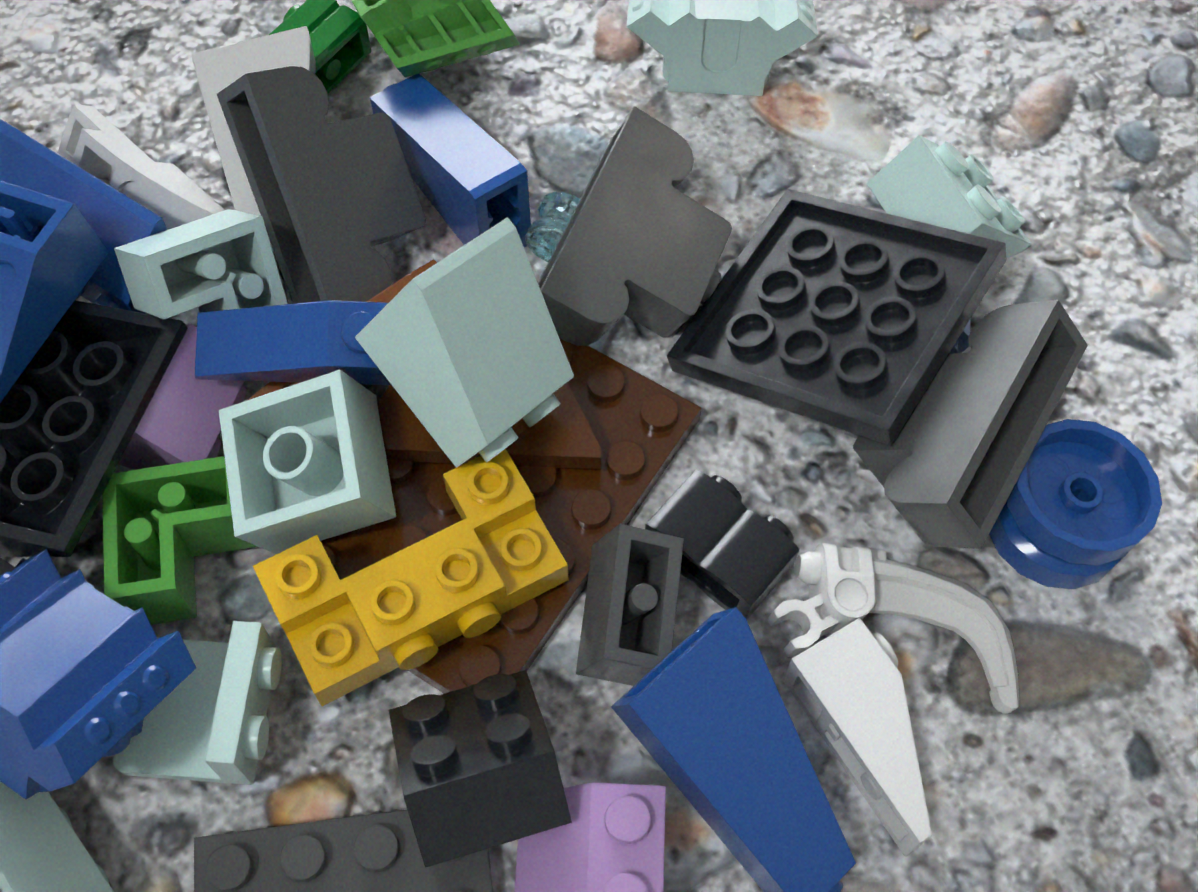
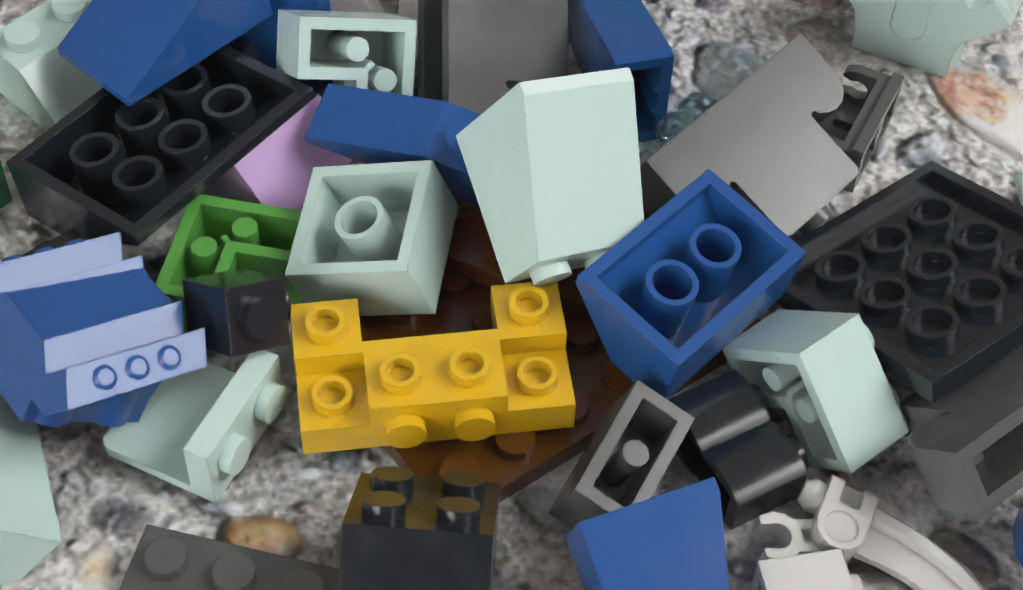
camera: 20 degrees right, 10 degrees down
(202, 594) = (239, 310): none -> black brick
(626, 405) = (687, 283): none -> blue slope
(713, 160) = (863, 116): none -> dark grey hinge
(780, 450) = (826, 381): none -> light aqua brick

